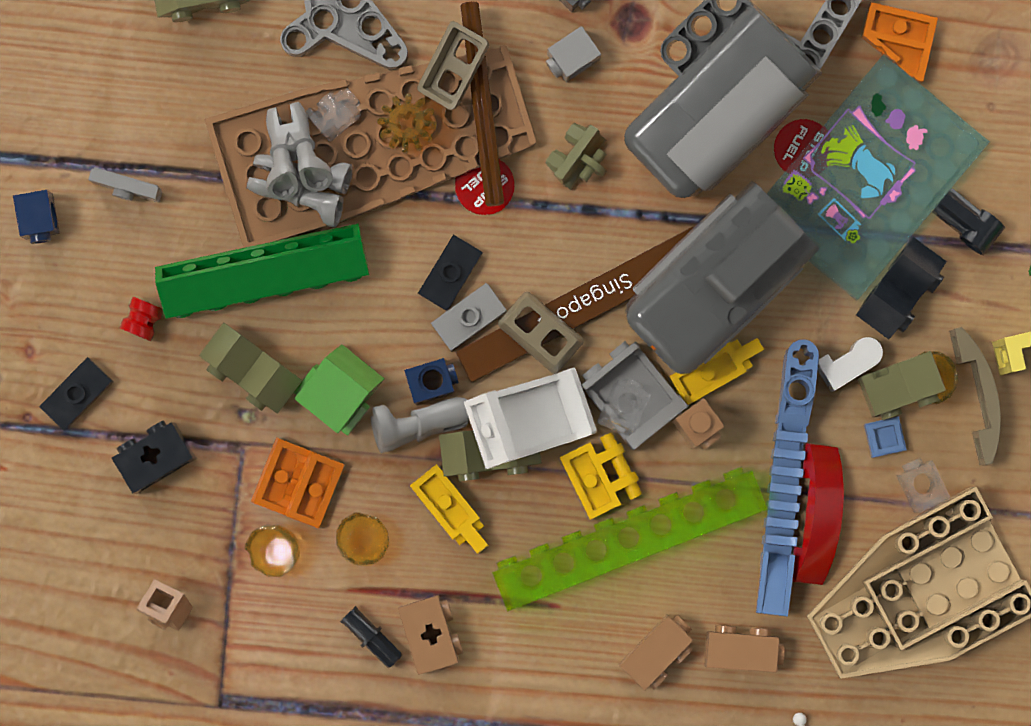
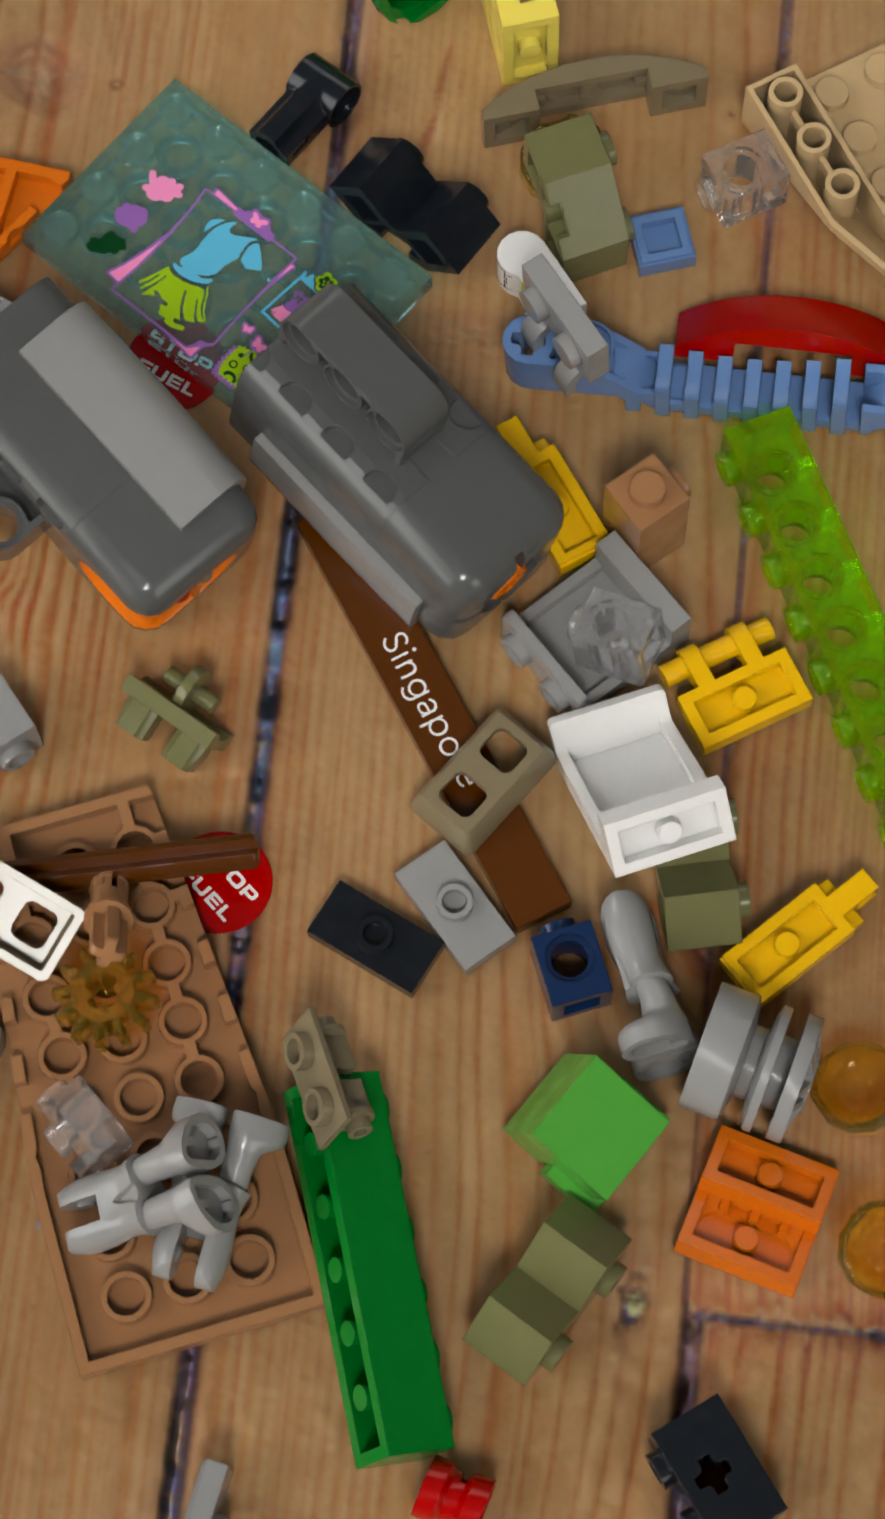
camera: 85 degrees left, 15 degrees down
(343, 248) = (317, 1055): none -> dark tan hinge
(372, 480) = (752, 1062): none -> light grey wheel
(447, 123) = (108, 918): none -> medium nougat axle
(811, 367) = (555, 309): none -> light grey plate

